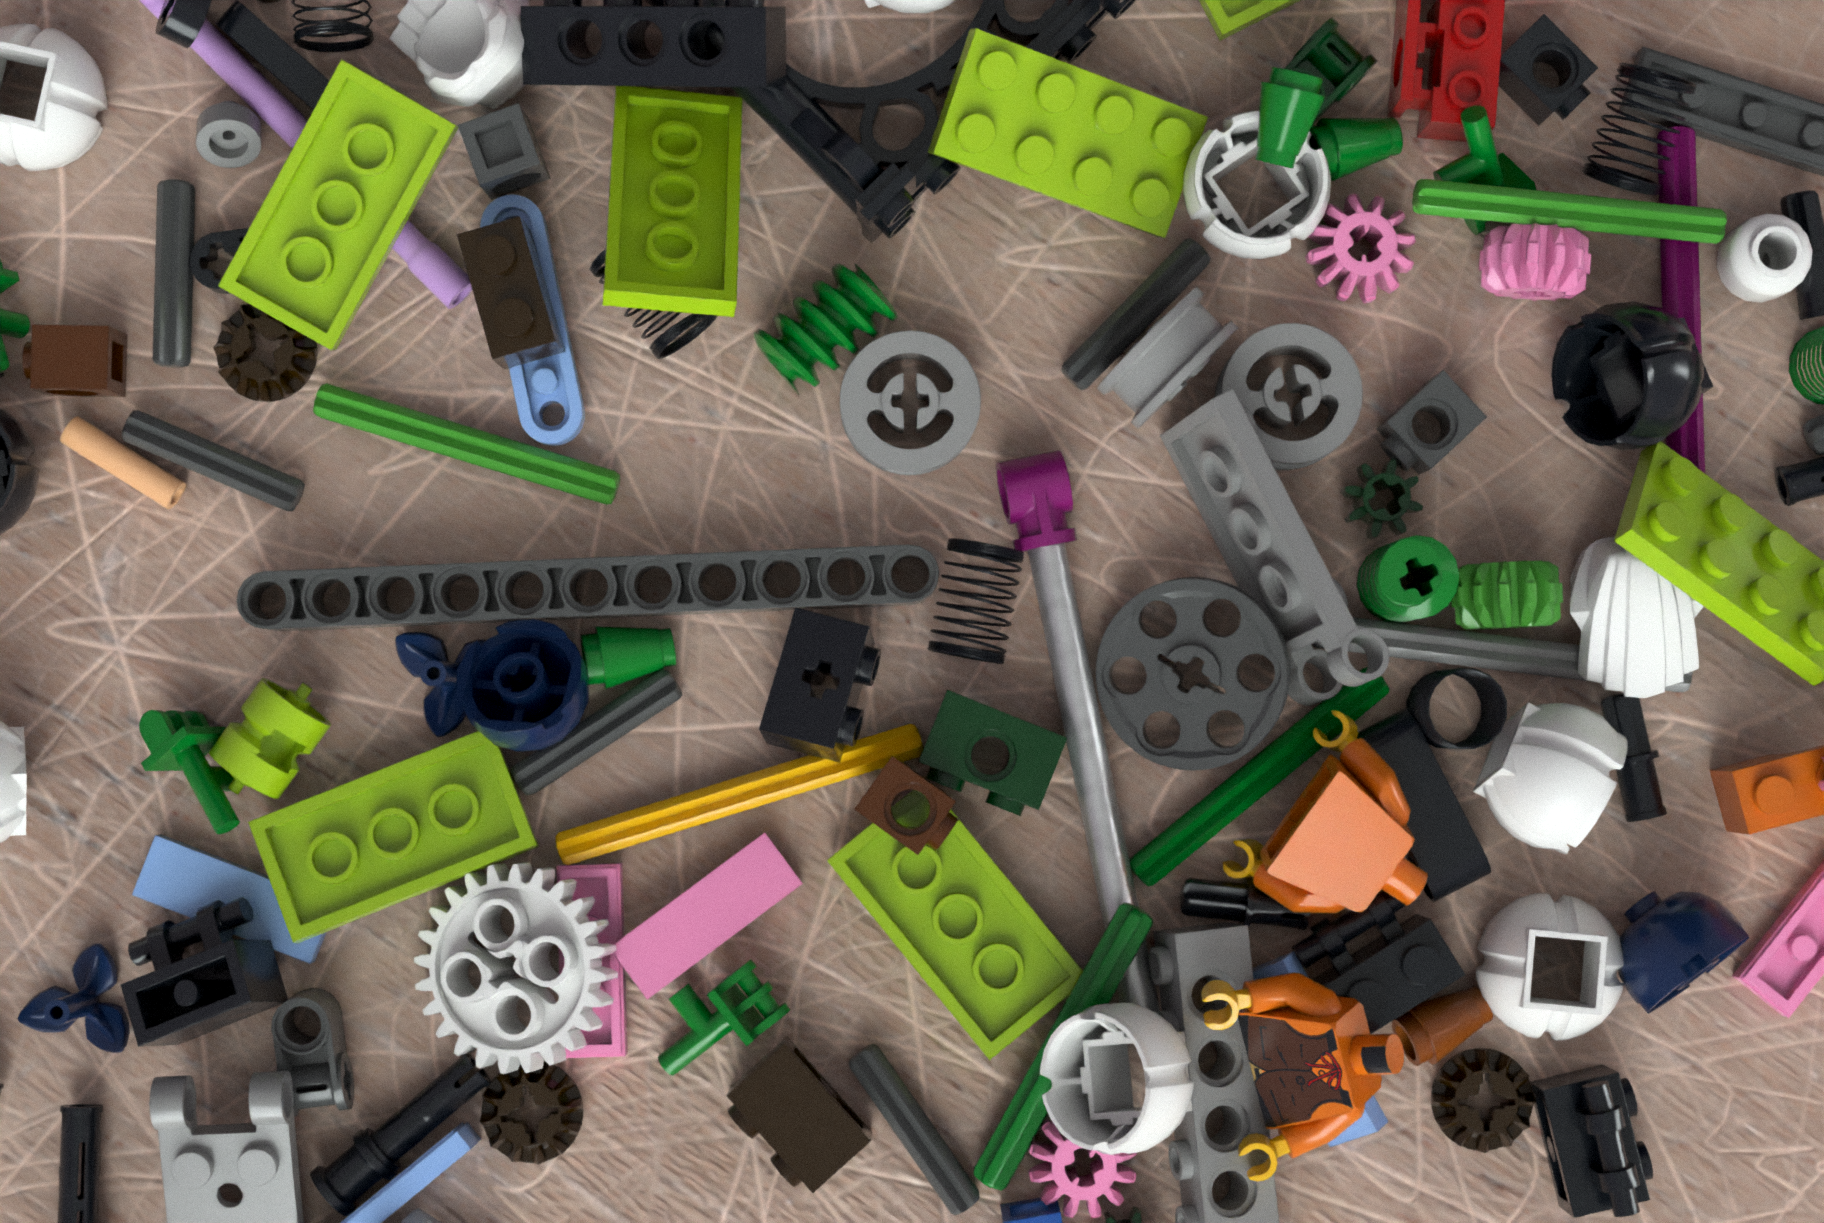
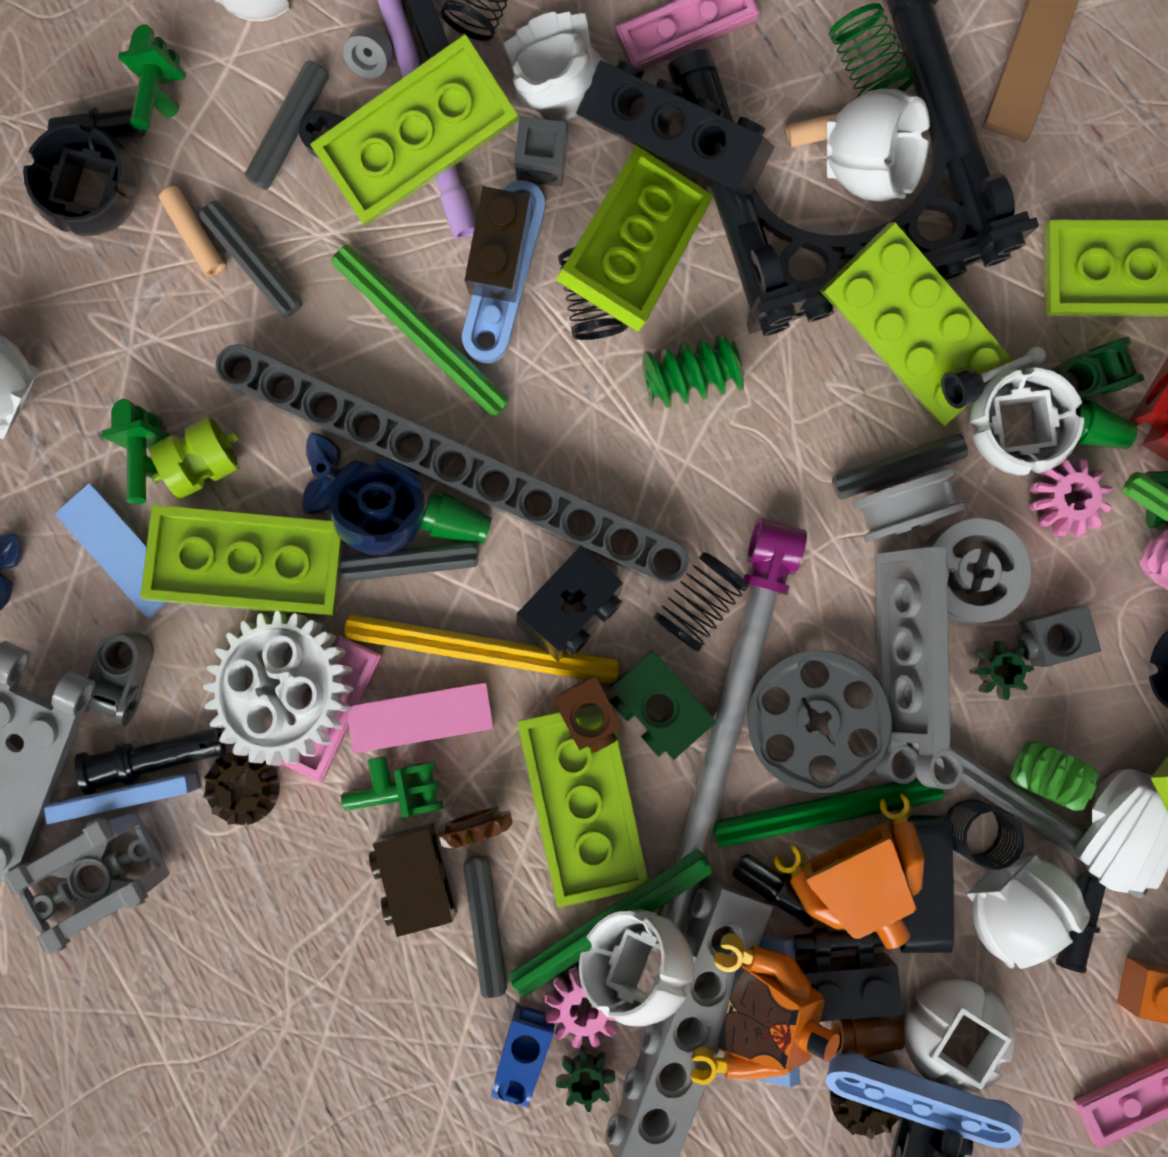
camera: 25 degrees right, 0 degrees up
(76, 360) = (195, 148): reddish brown brick -> none
(206, 989) = (66, 599): black brick -> none
(254, 379) = (303, 219): dark brown gear -> none
(840, 1014) = (474, 827): none -> reddish brown gear
(959, 403) = (755, 467): light grey wheel -> none
(1161, 178) = (966, 384): none -> black hinge
(1286, 115) = (1075, 382): green cone -> none
(1433, 572) = (995, 732): green piece -> none
(1542, 1064) = (924, 1101): none -> light blue plate
(1674, 944) = (1051, 1064): dark blue cylinder -> none

